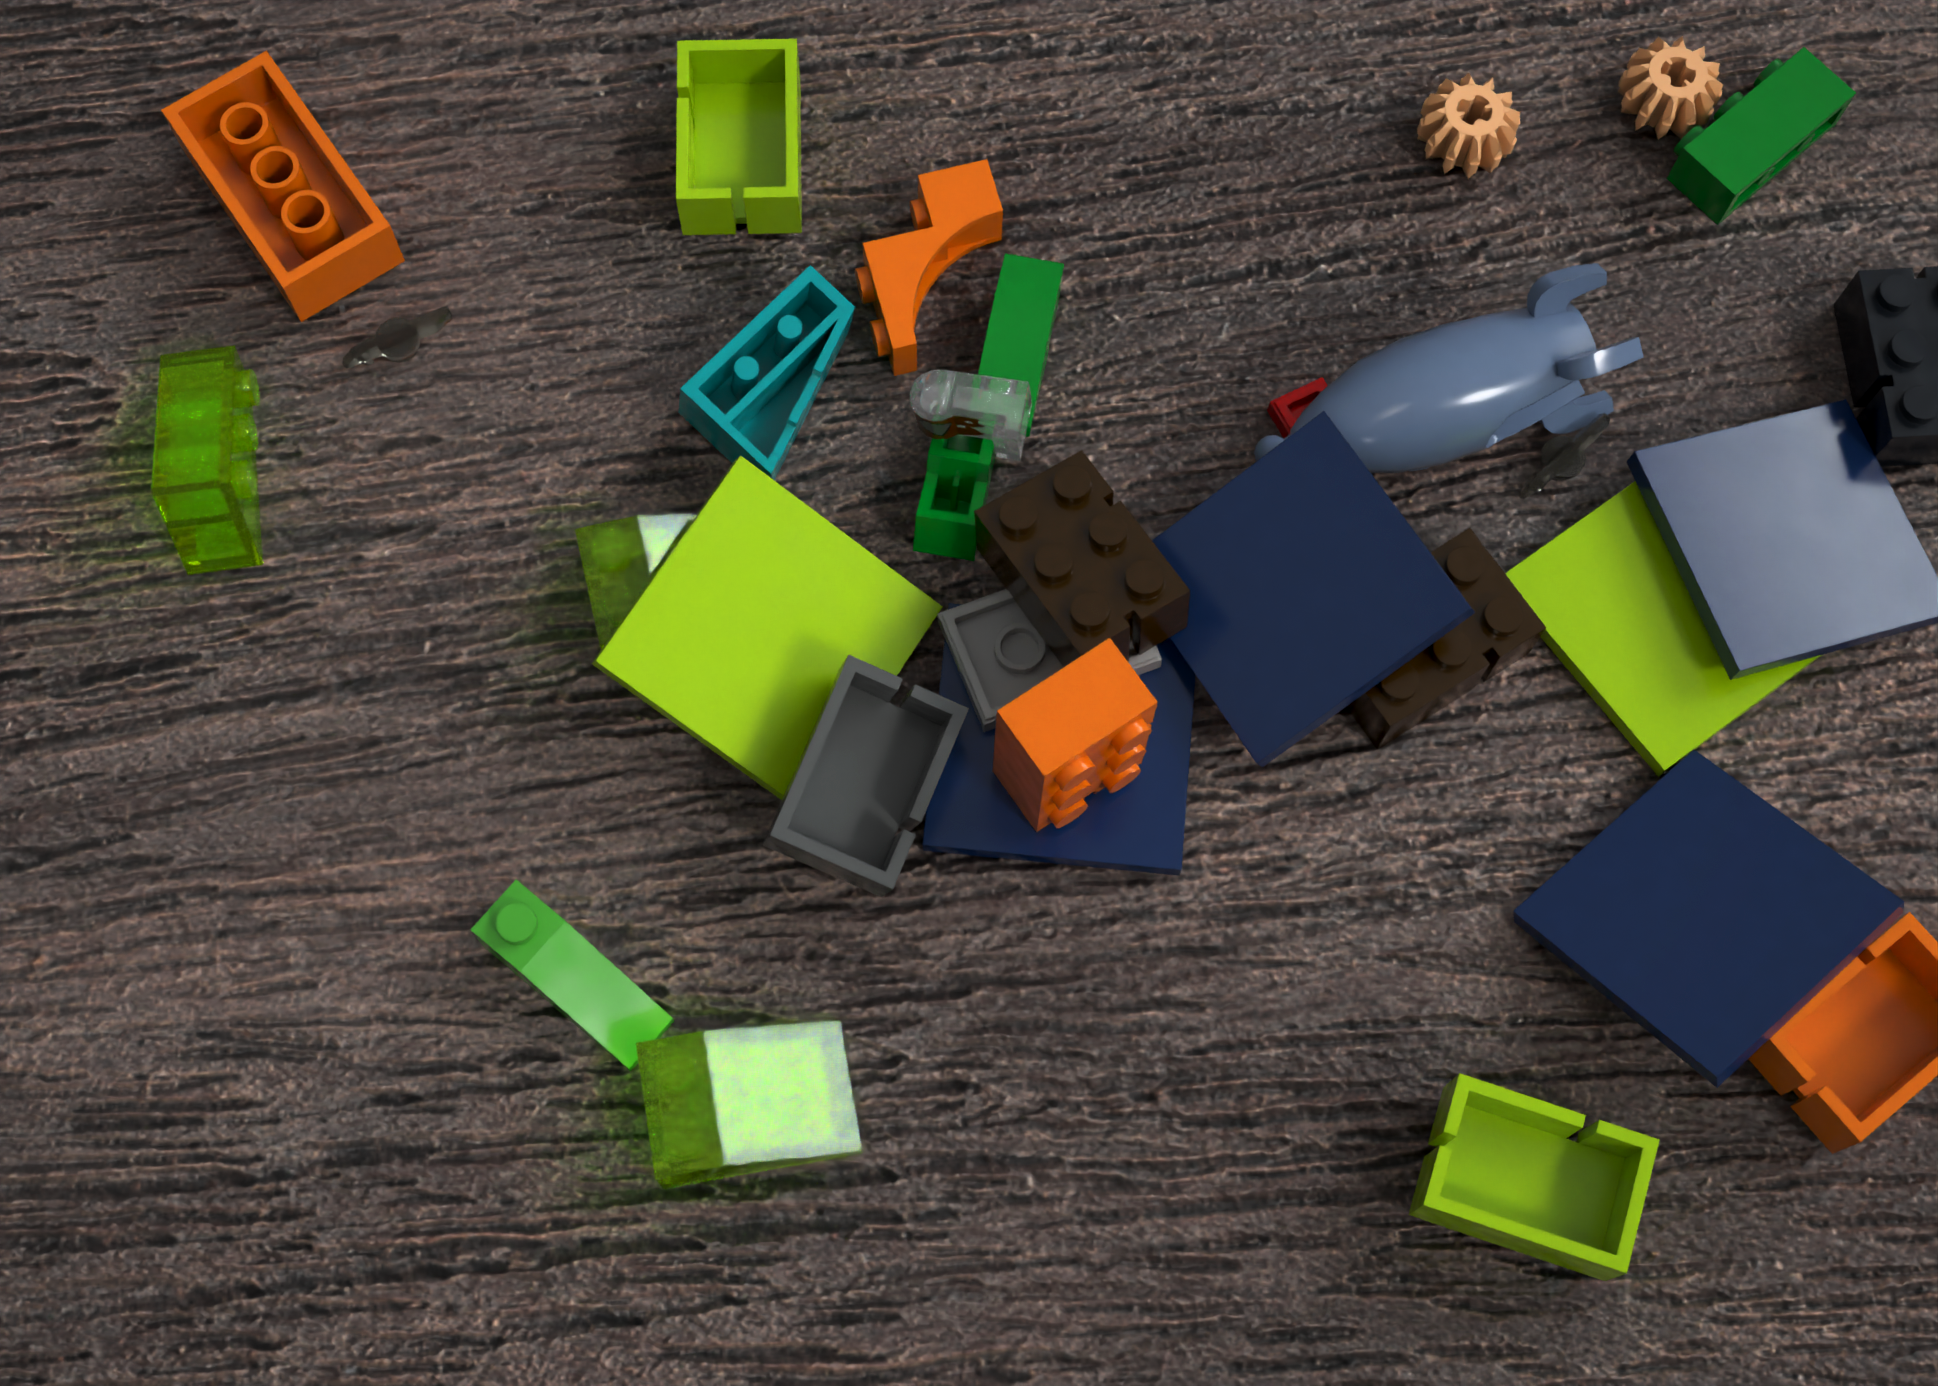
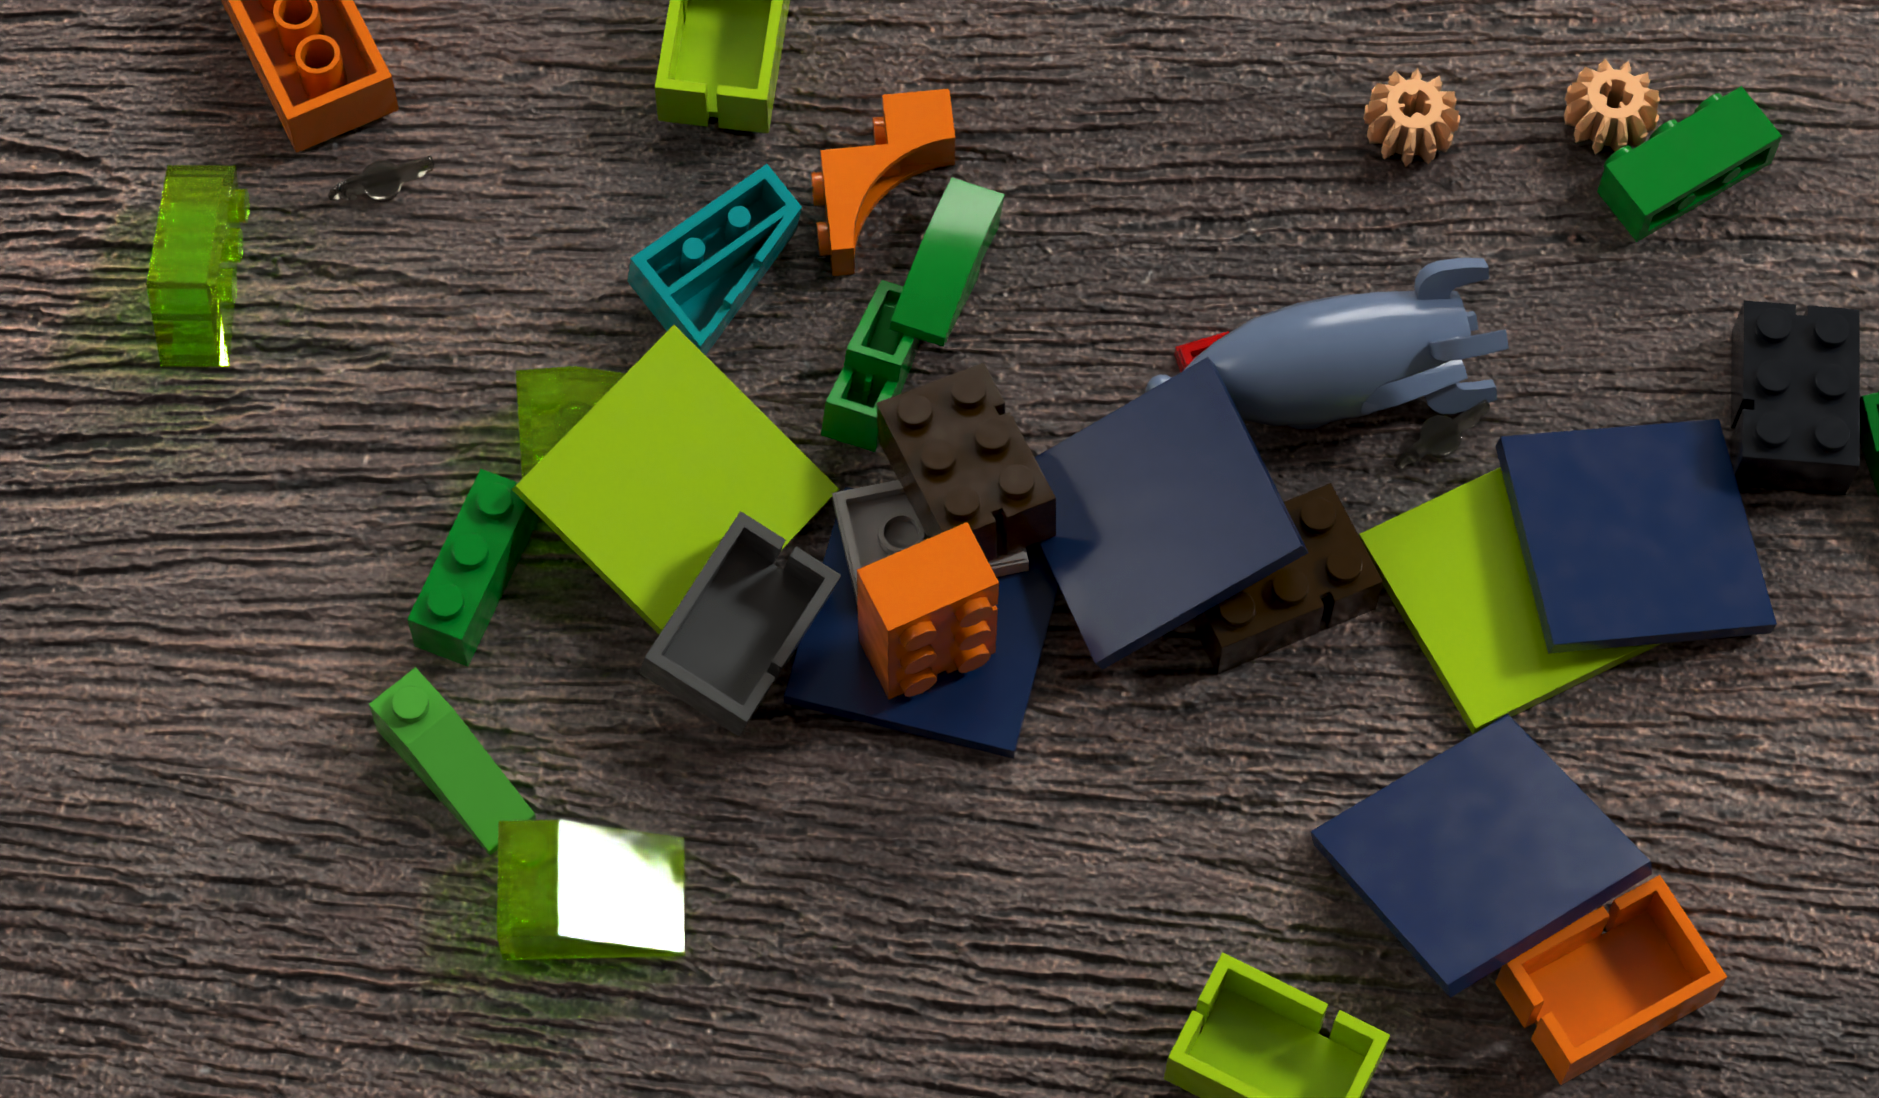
camera: 10 degrees right, 5 degrees down
(561, 755) = (472, 569): none -> green brick
(973, 406) = (894, 311): clear leg -> none

